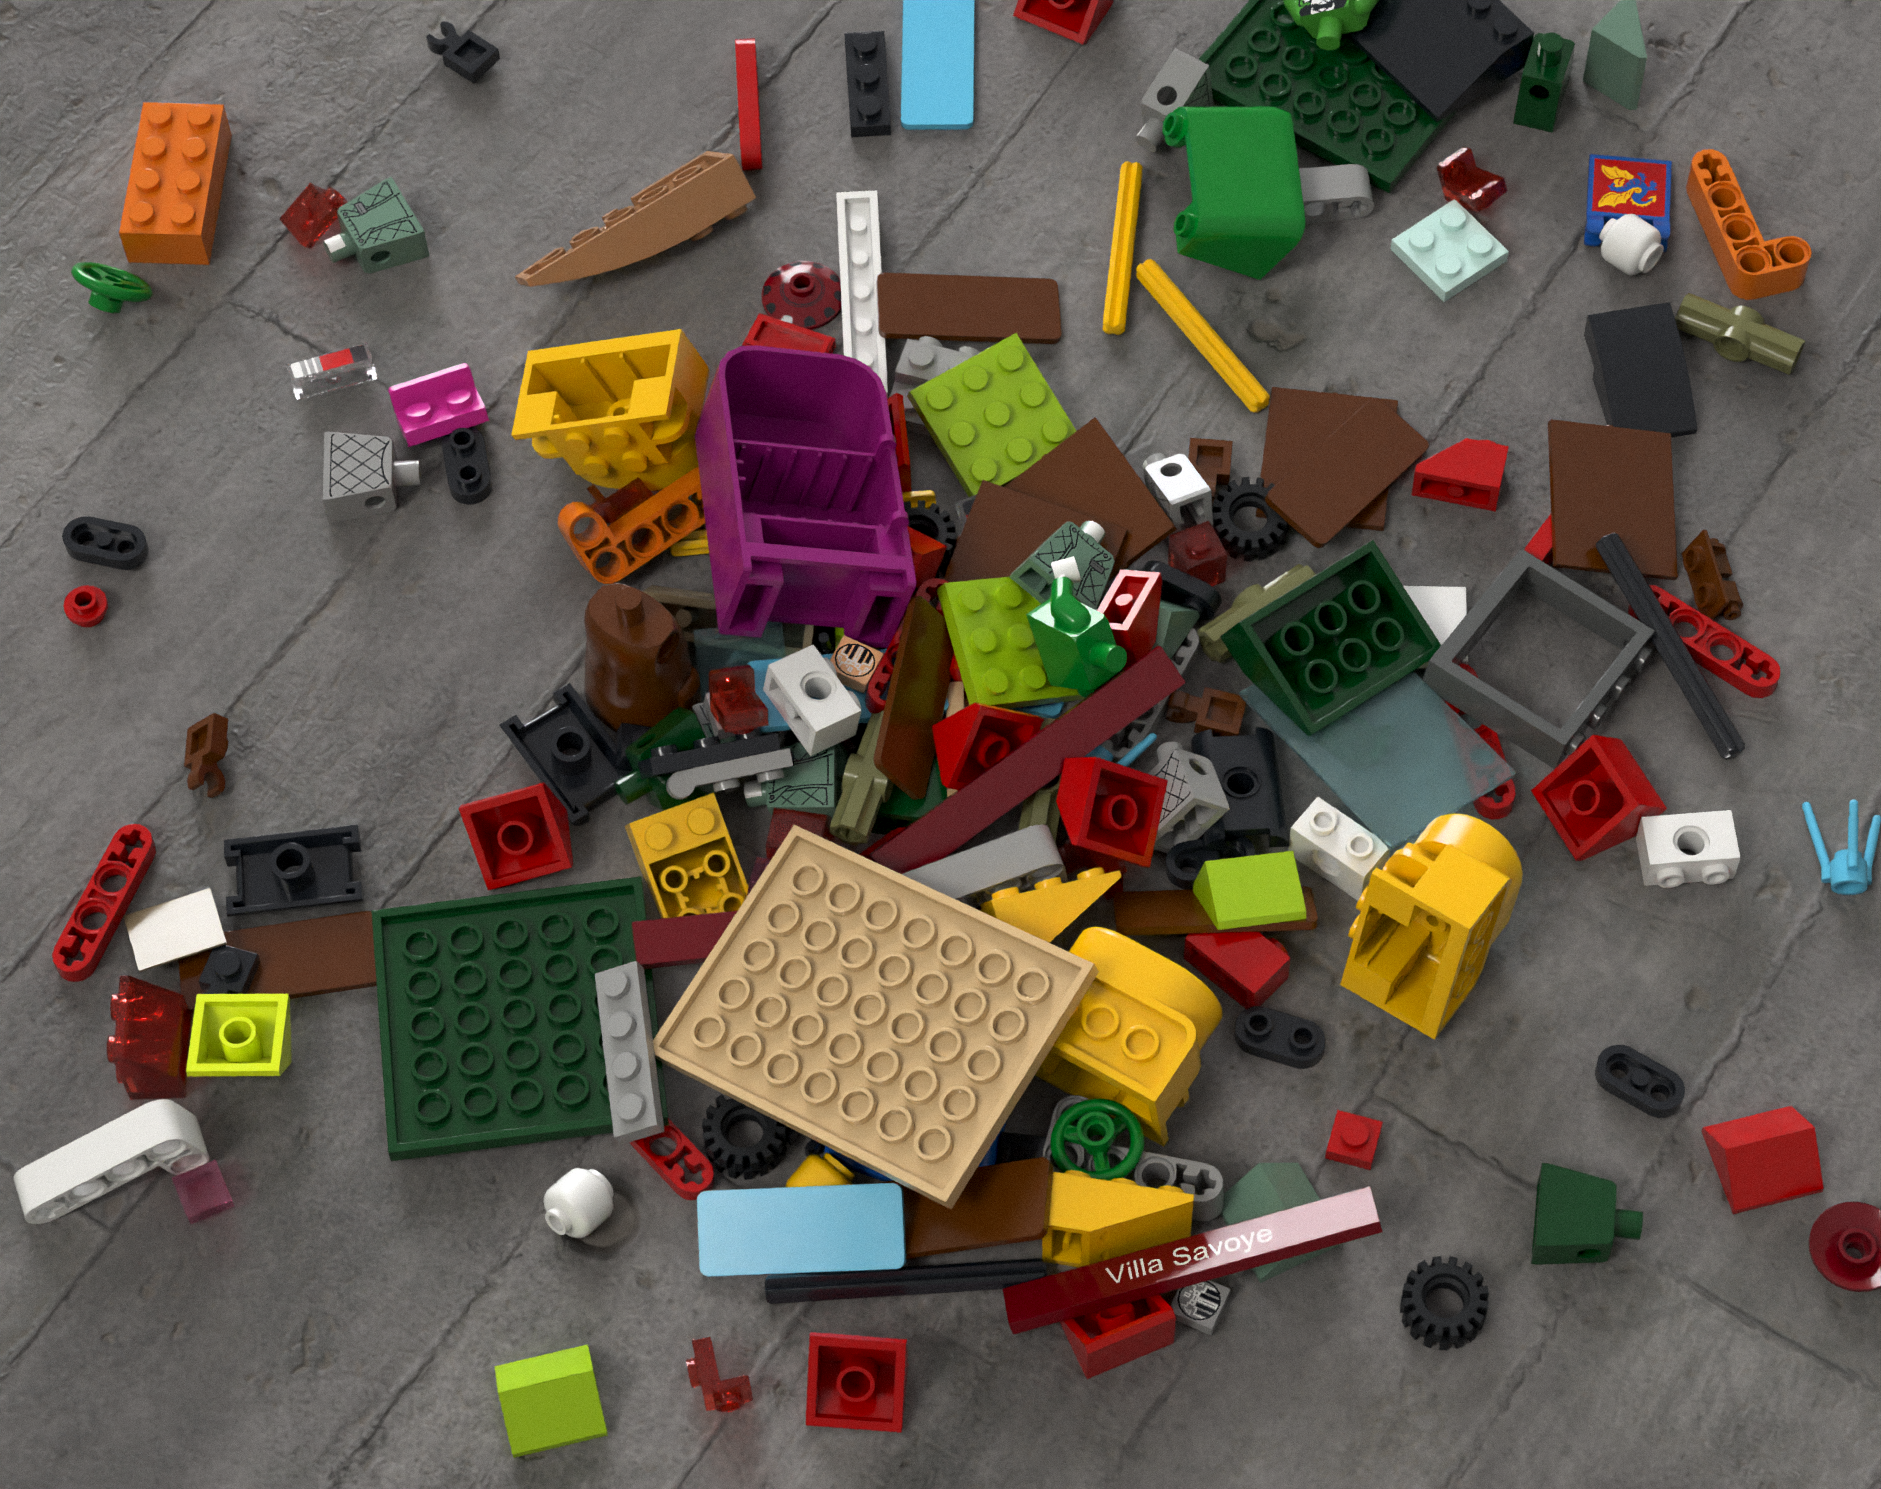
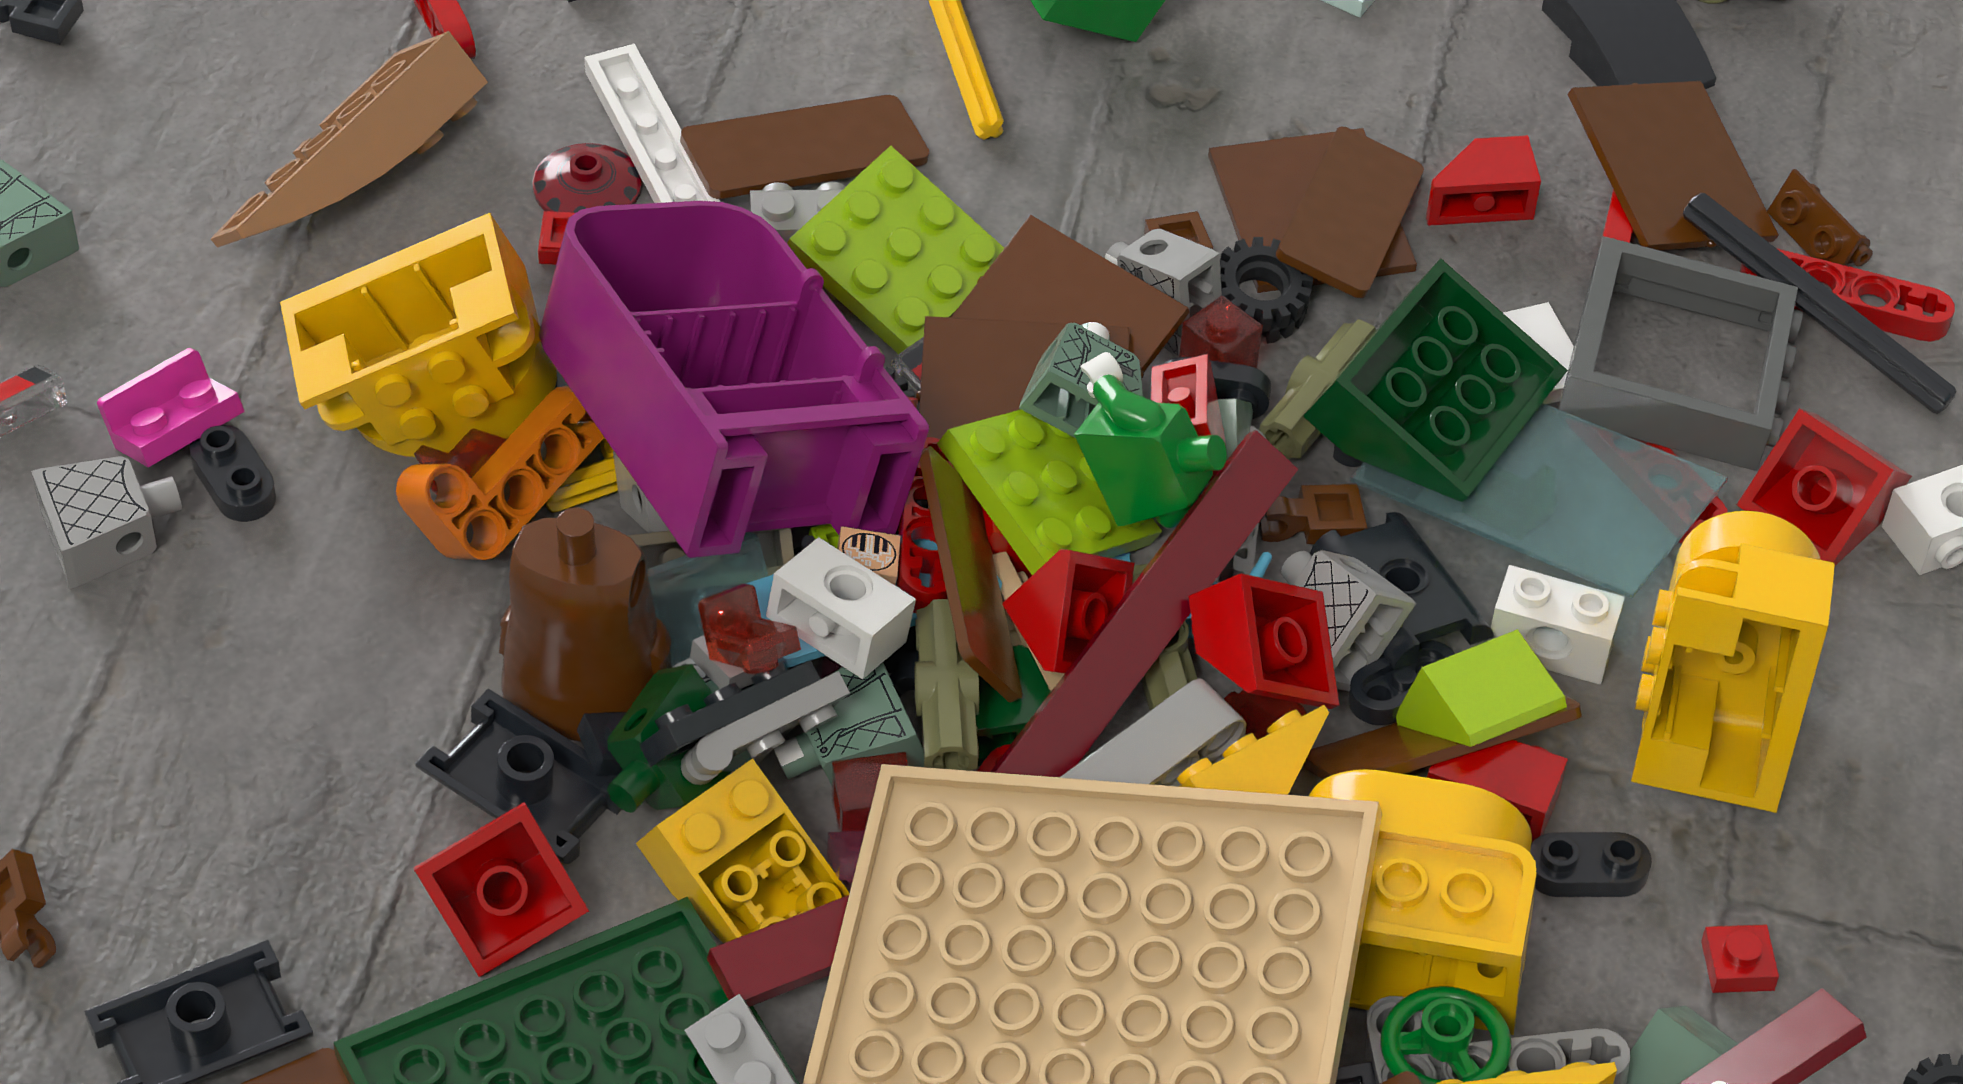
camera: 25 degrees left, 10 degrees down
(1203, 336) = (1101, 112): yellow axle -> none

